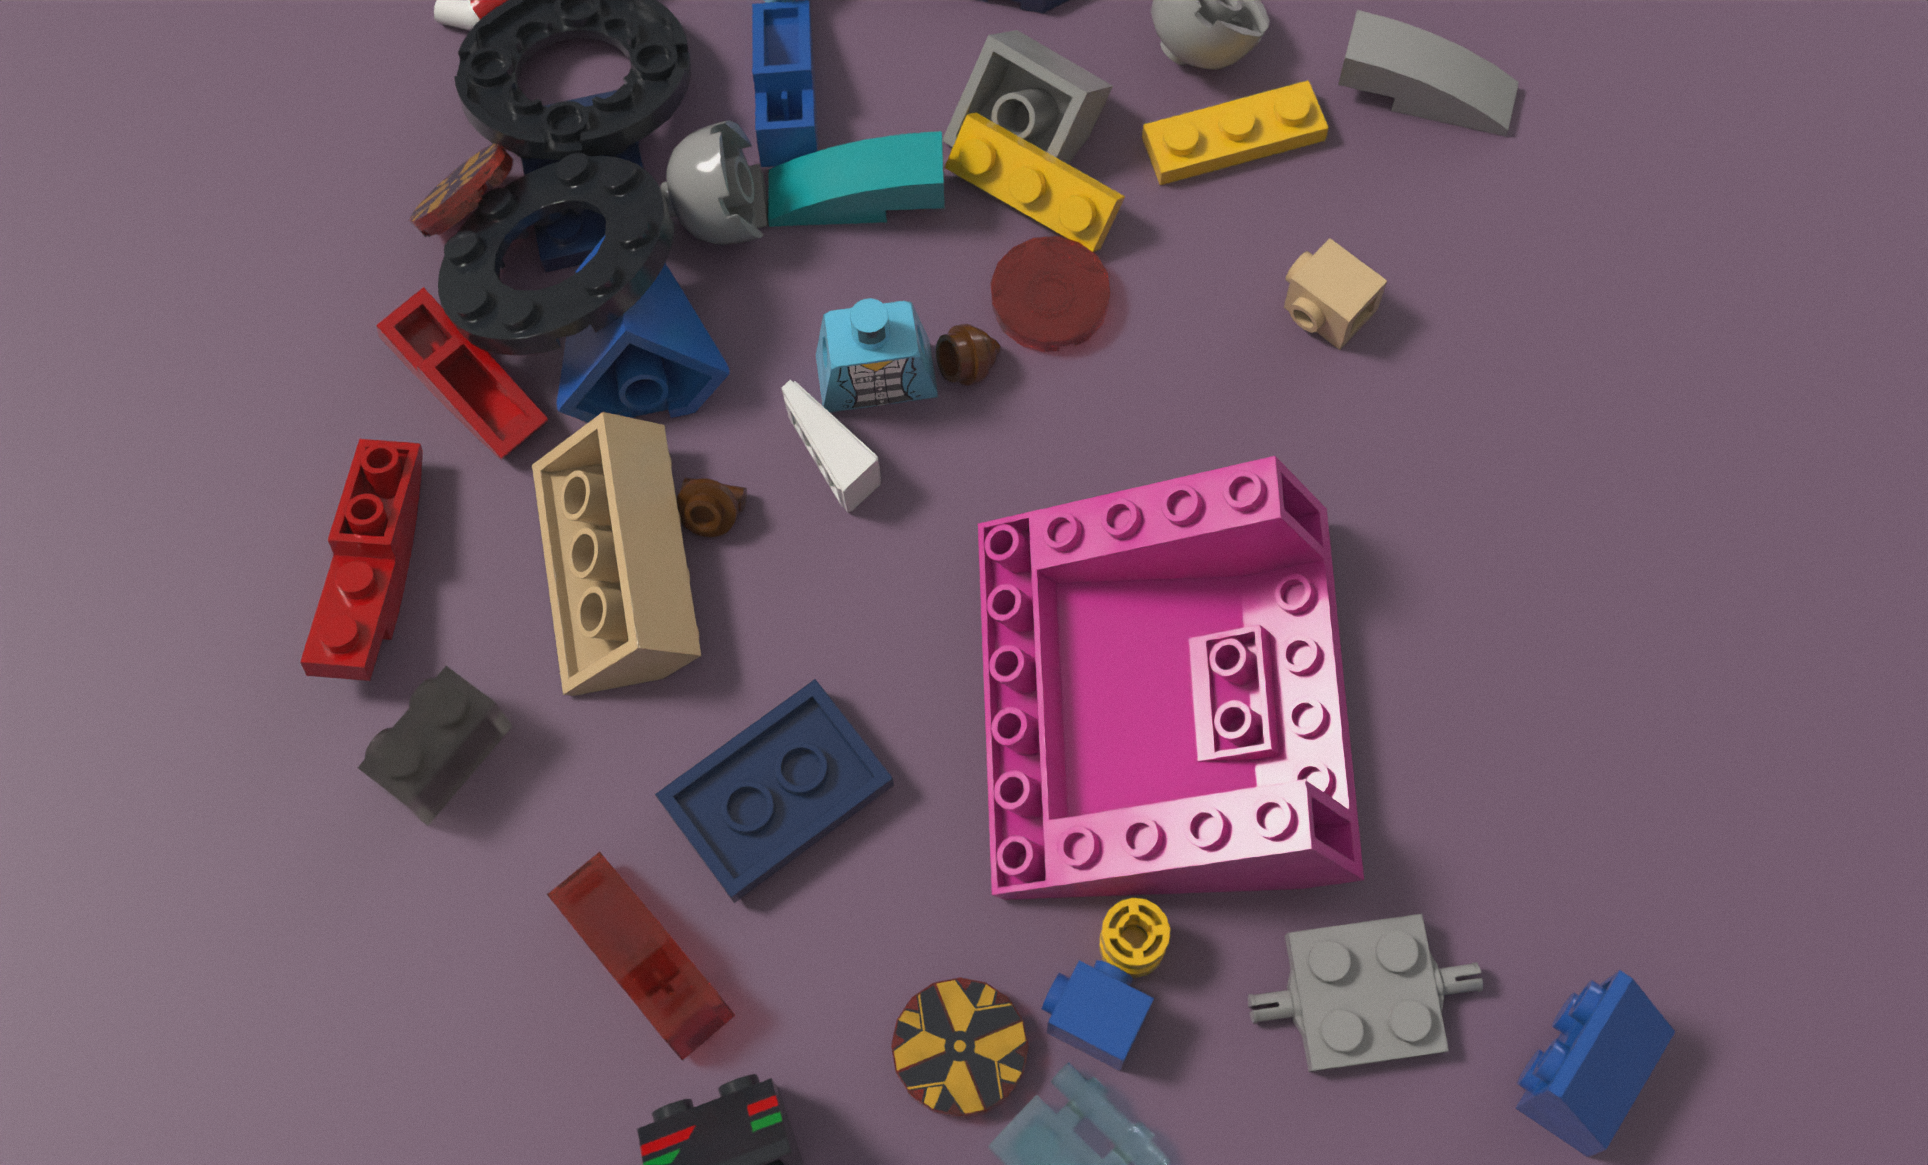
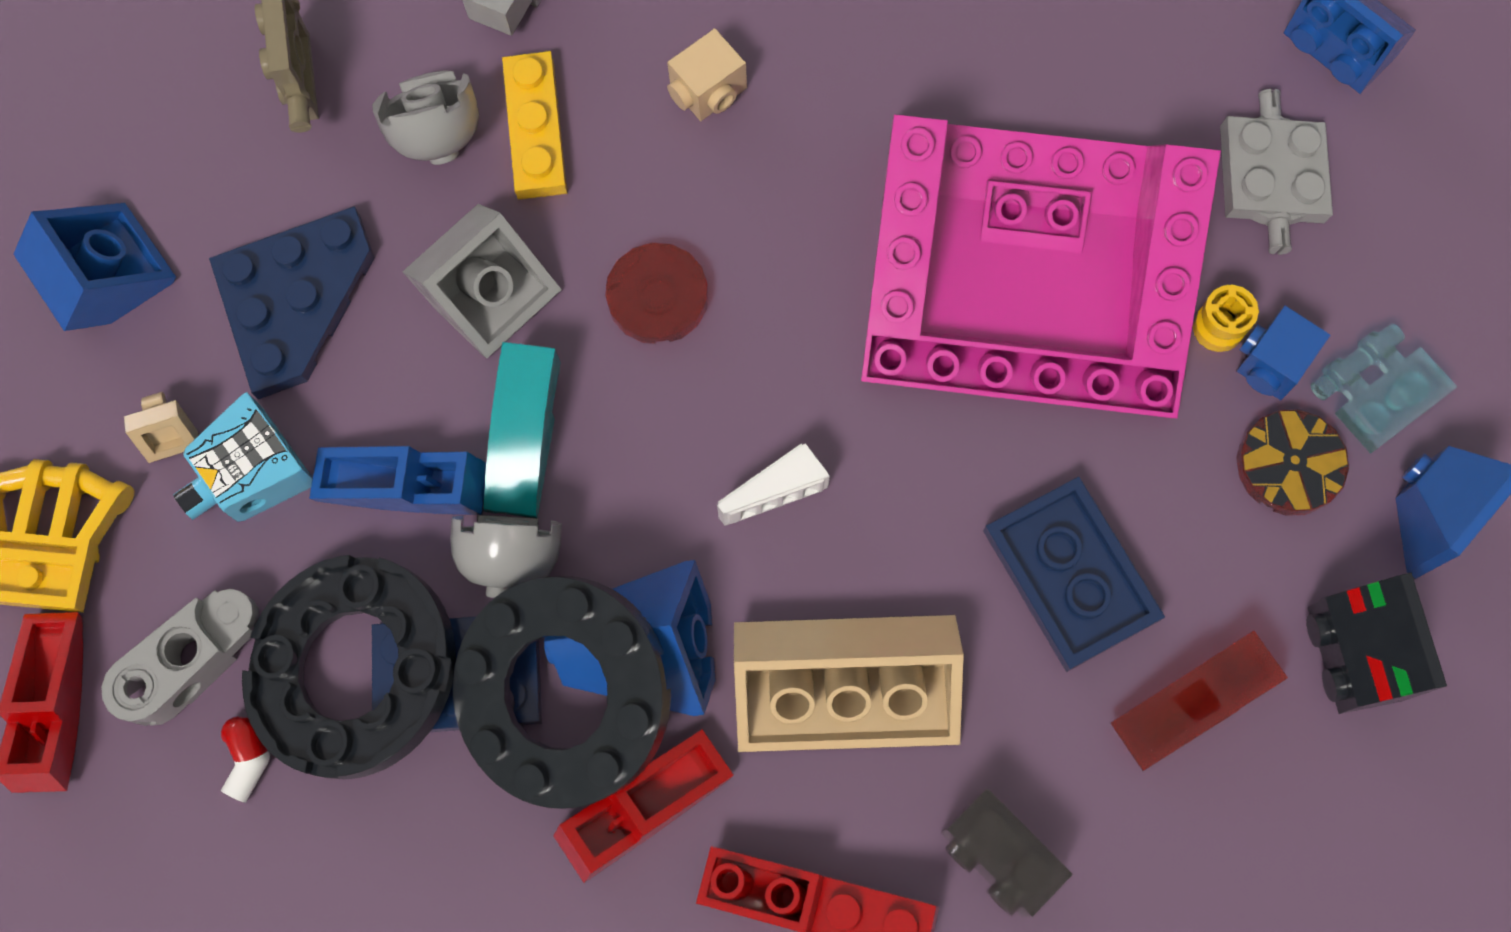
camera: 80 degrees left, 5 degrees up
(461, 191) = (457, 783): clear red tile -> none
(709, 506) = (807, 596): reddish brown plate -> none
(874, 356) = (703, 438): medium azure torso -> none
(966, 354) = (705, 367): reddish brown plate -> none
(1034, 181) = (553, 283): yellow plate -> none

